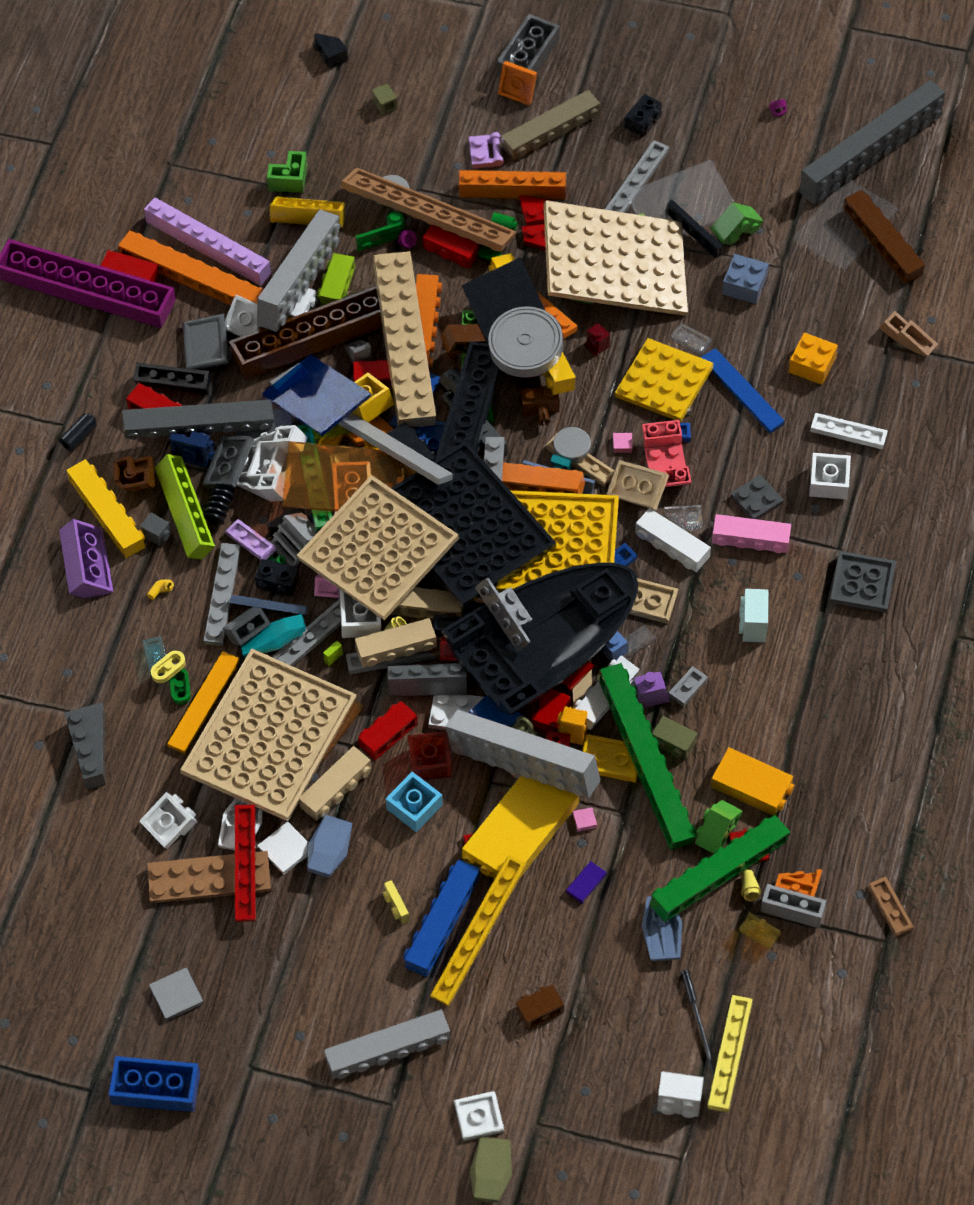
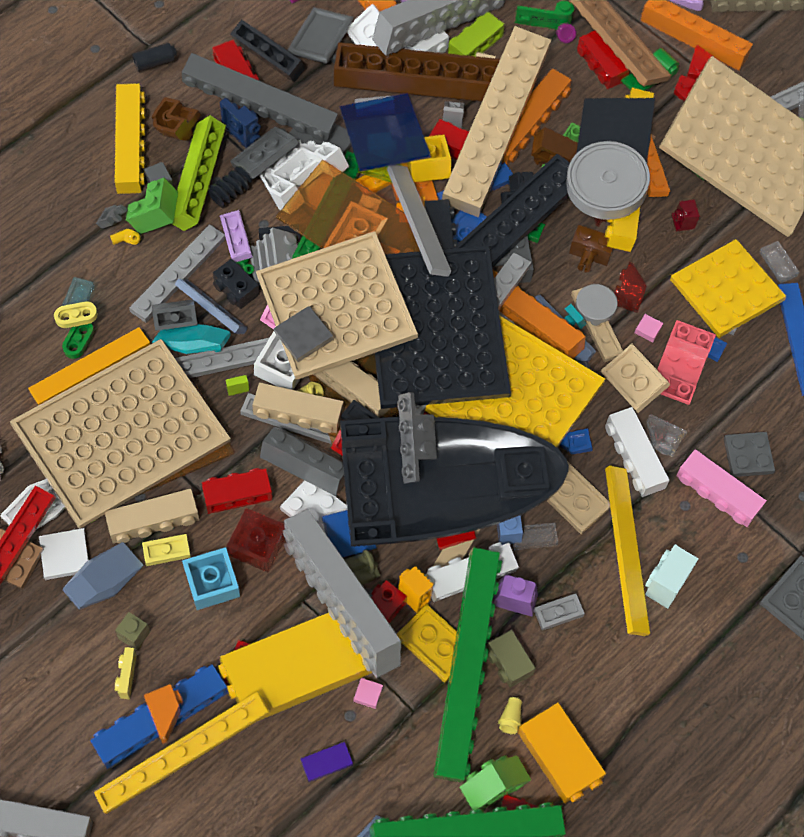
camera: 25 degrees right, 5 degrees up
(85, 559) = (78, 175): medium lavender slope -> none
(137, 576) = (111, 216): none -> dark grey plate
(174, 551) = (156, 208): none -> bright green brick
(363, 802) = (166, 550): none -> light yellow plate
(369, 581) = (303, 333): none -> flat silver tile
(380, 870) = (132, 631): none -> olive brick
(446, 907) = (164, 710): none -> orange slope
(547, 715) = (406, 556): red brick -> none
(591, 419) = (632, 289): none -> clear red slope
(700, 777) = (511, 716): none -> light yellow cone
(710, 615) = (627, 551): none -> yellow tile

